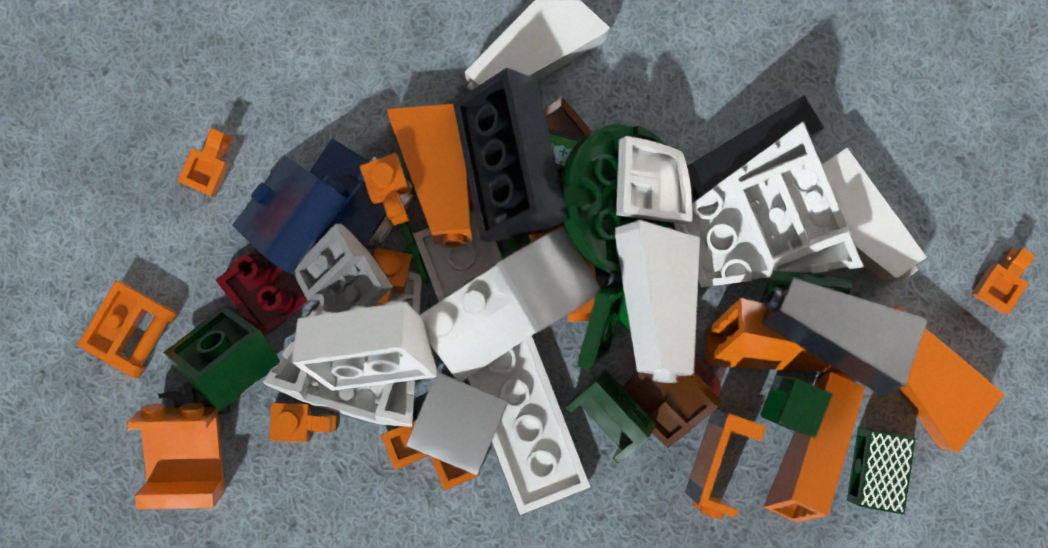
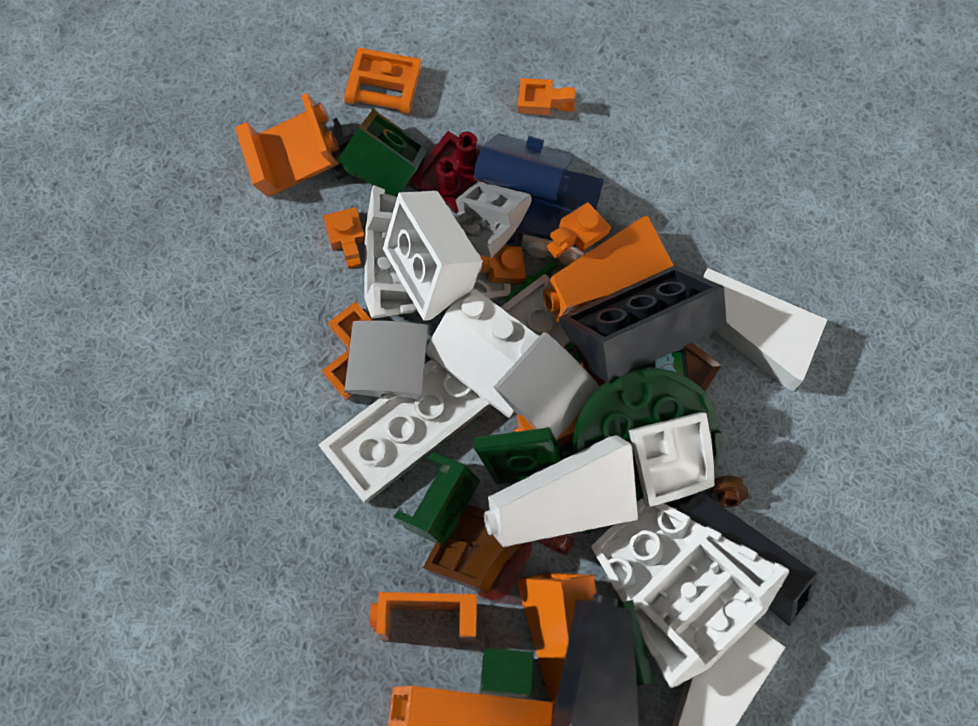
camera: 75 degrees right, 15 degrees down
(687, 138) = (729, 491): none -> reddish brown plate

